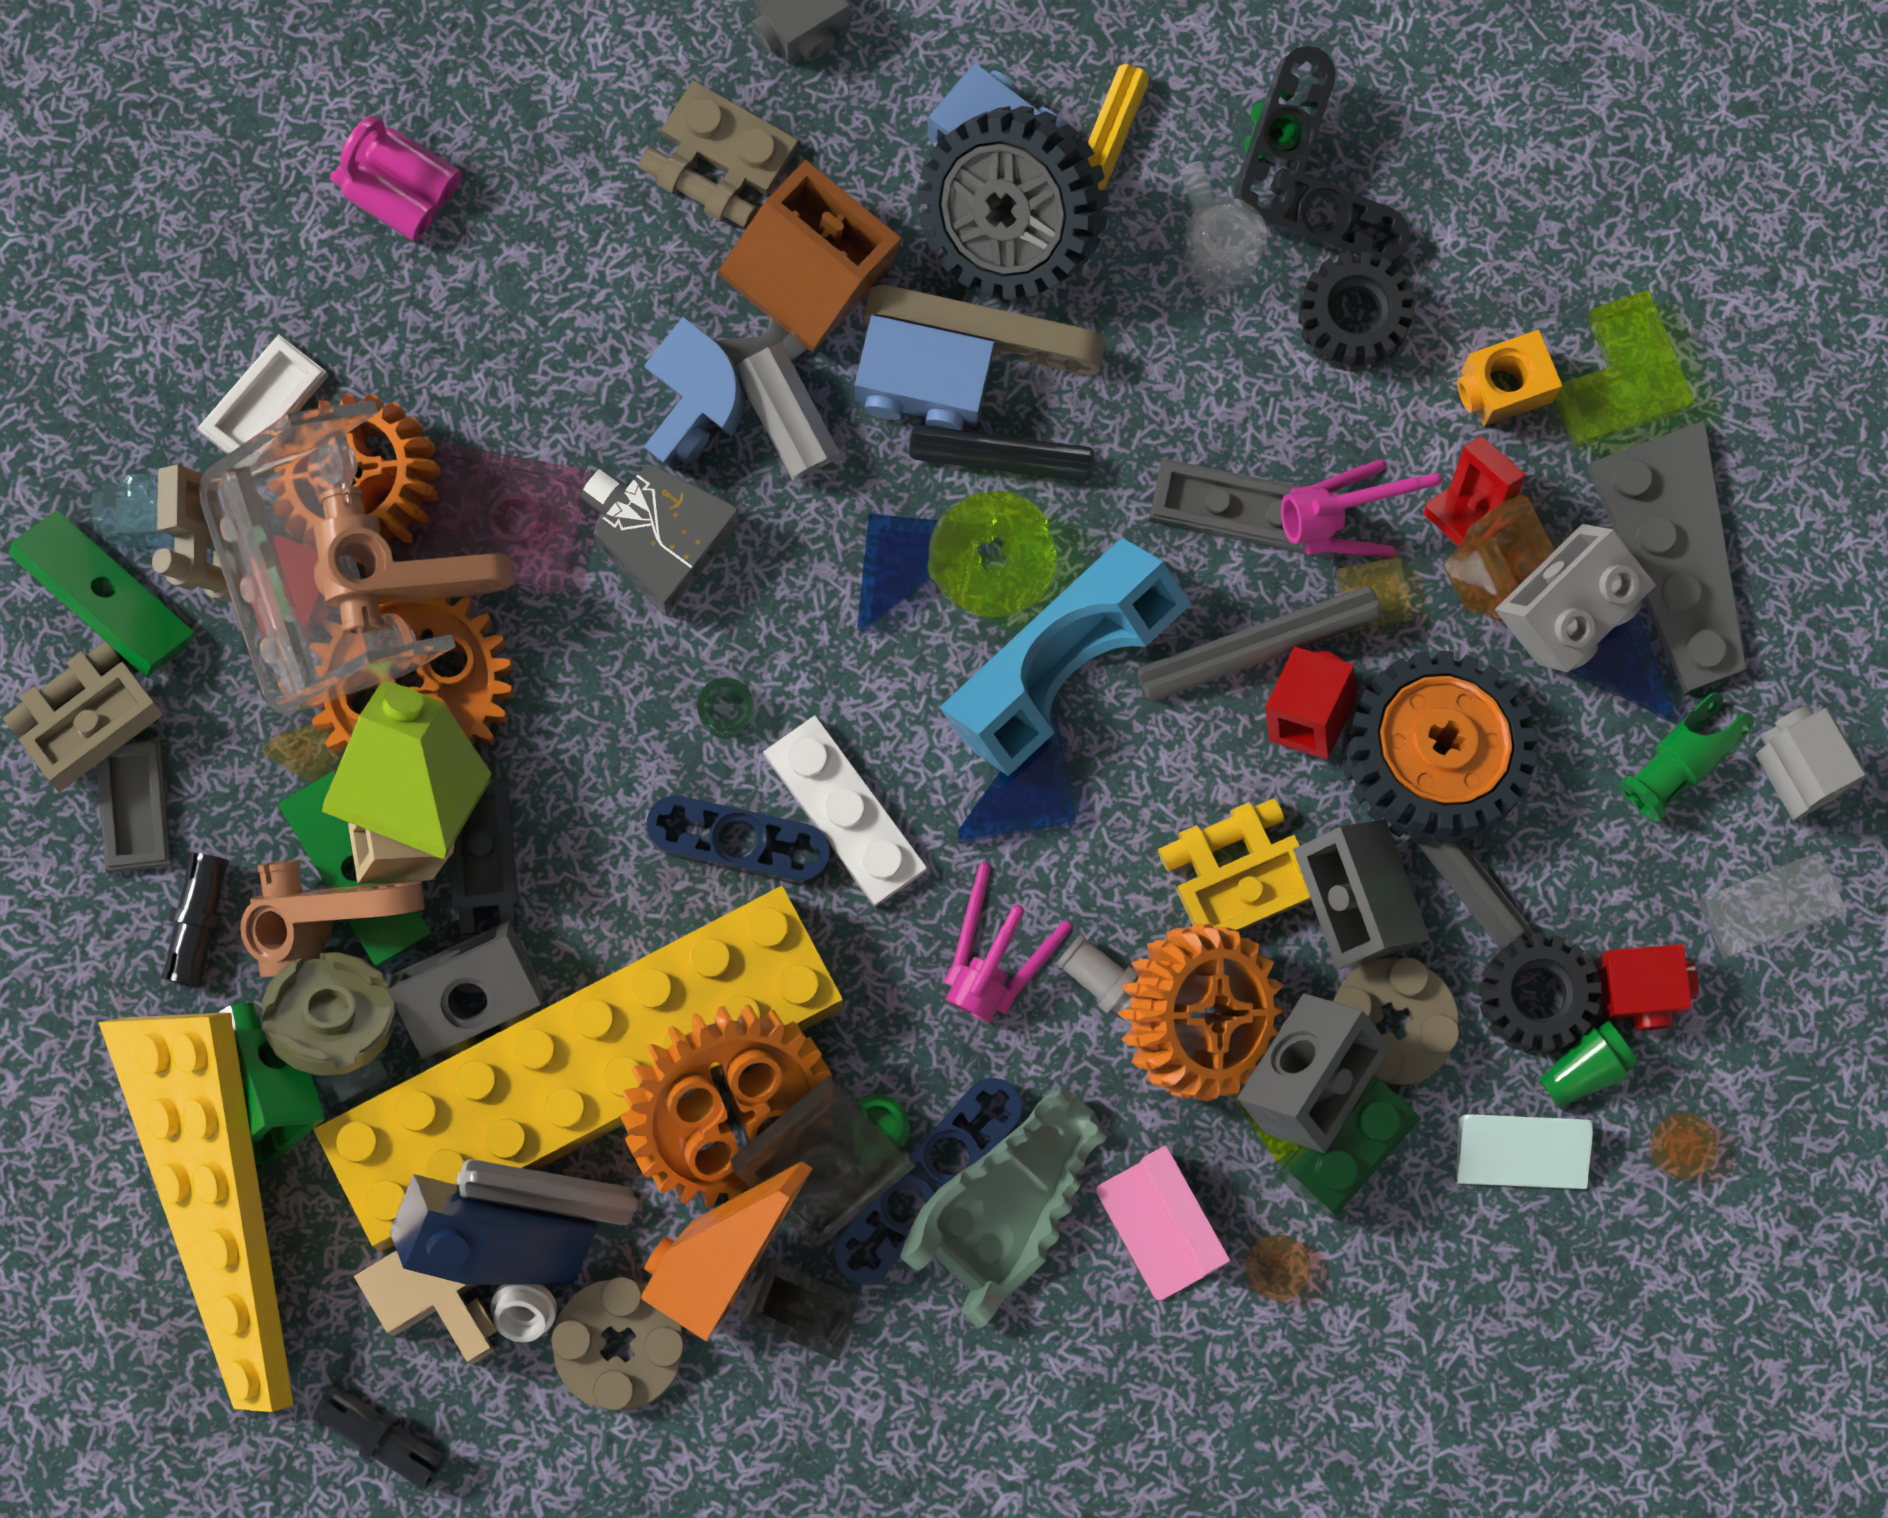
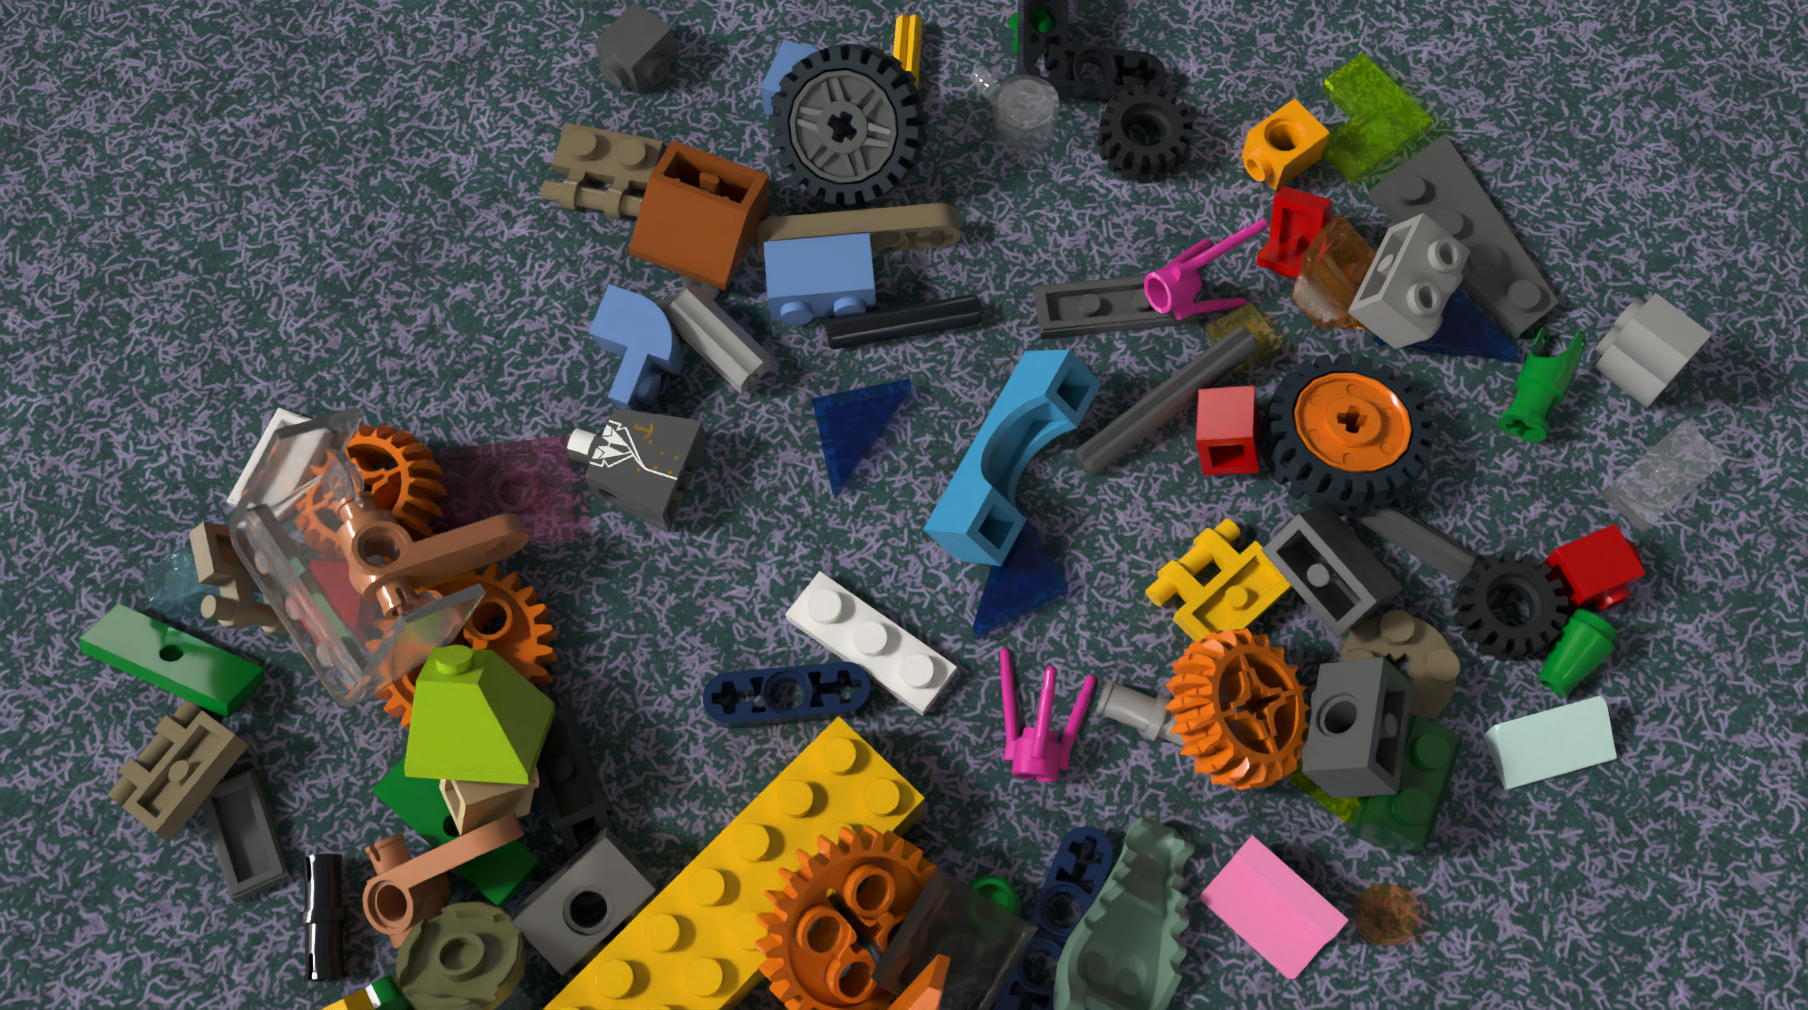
camera: 10 degrees left, 10 degrees down
(302, 752) = (382, 741): clear yellow tile -> none
(394, 177) = (342, 259): dark pink piece -> none
(727, 689) = (738, 573): clear green bush -> none
(1027, 545) = (900, 415): clear neon green plate -> none
(1683, 1145) = (1680, 695): clear orange tile -> none

